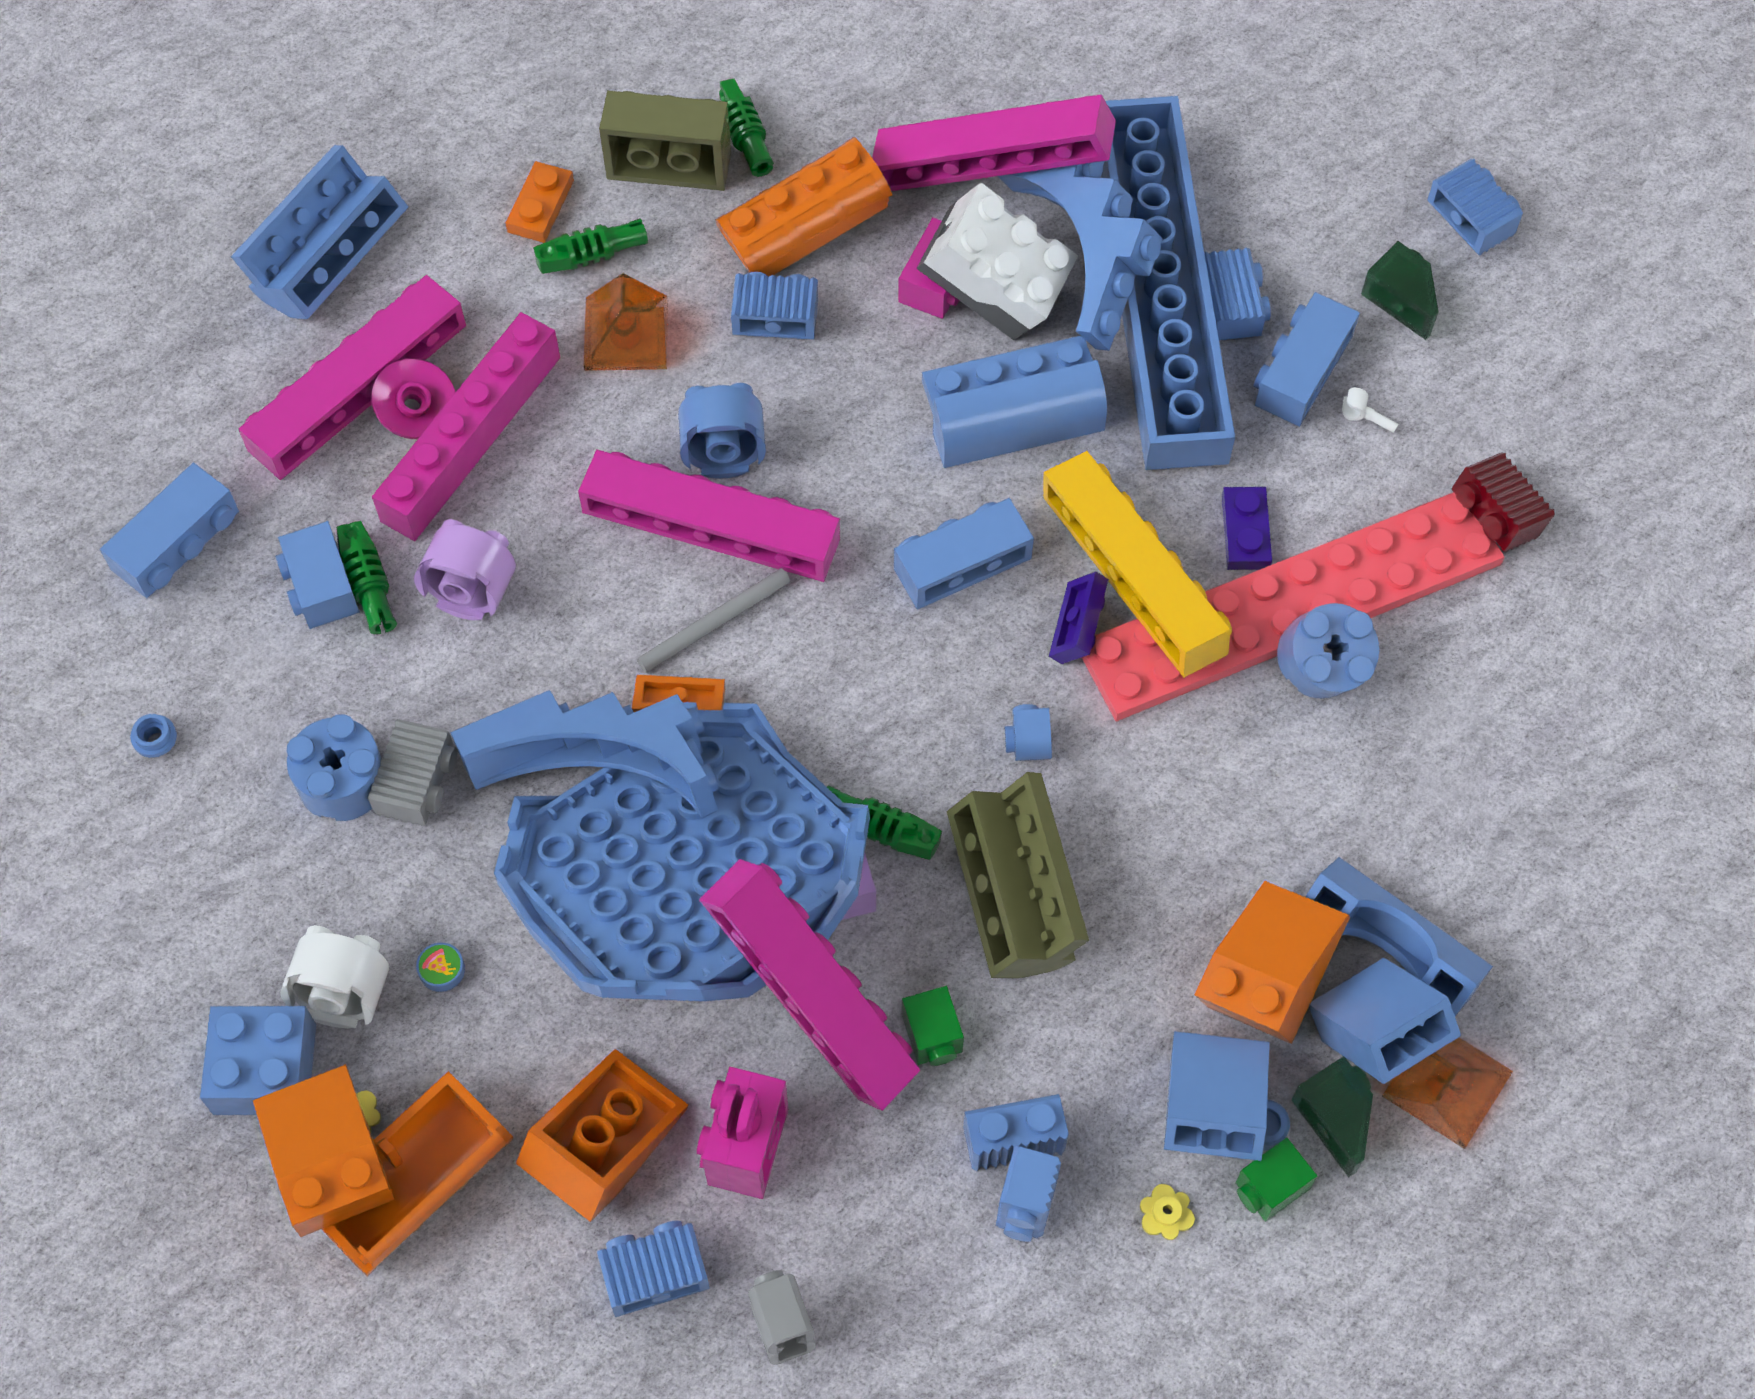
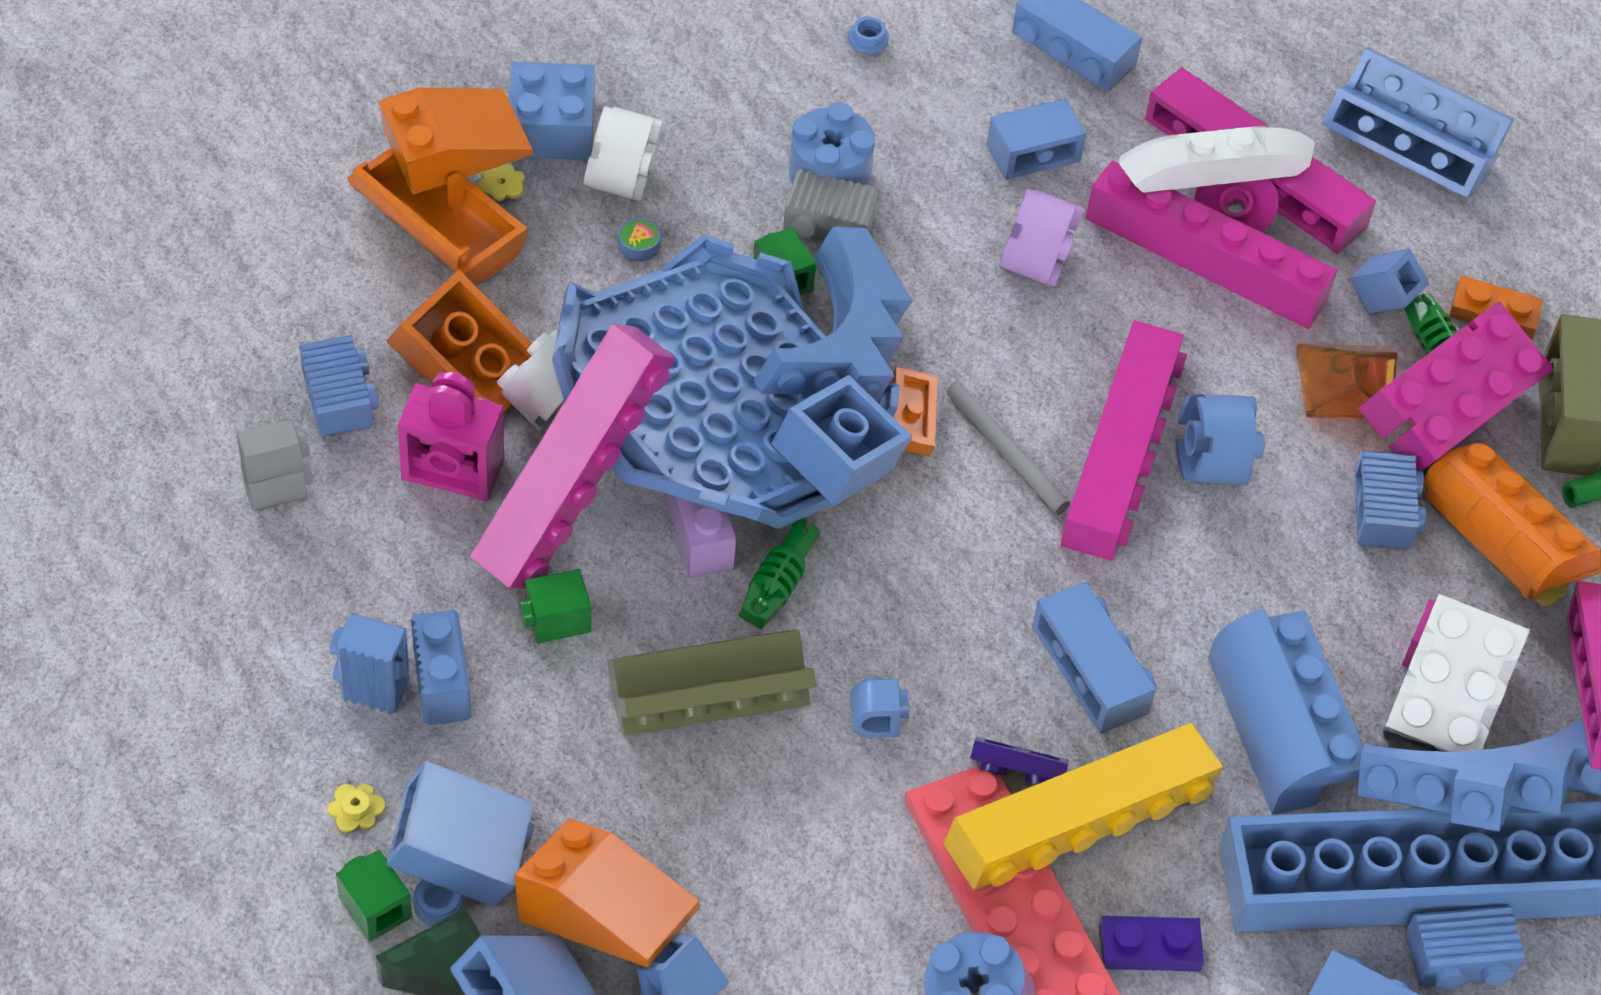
camera: 85 degrees right, 10 degrees down
(365, 575) = (1039, 173): green hinge -> none
(385, 398) = (1217, 158): none -> white brick
(483, 817) = (789, 247): none -> green brick
(522, 276) = (1389, 281): none -> medium blue brick
(661, 232) = (1457, 386): none -> dark pink piece
(664, 1040) = (534, 384): none -> white brick
(770, 738) = (841, 440): none -> medium blue brick

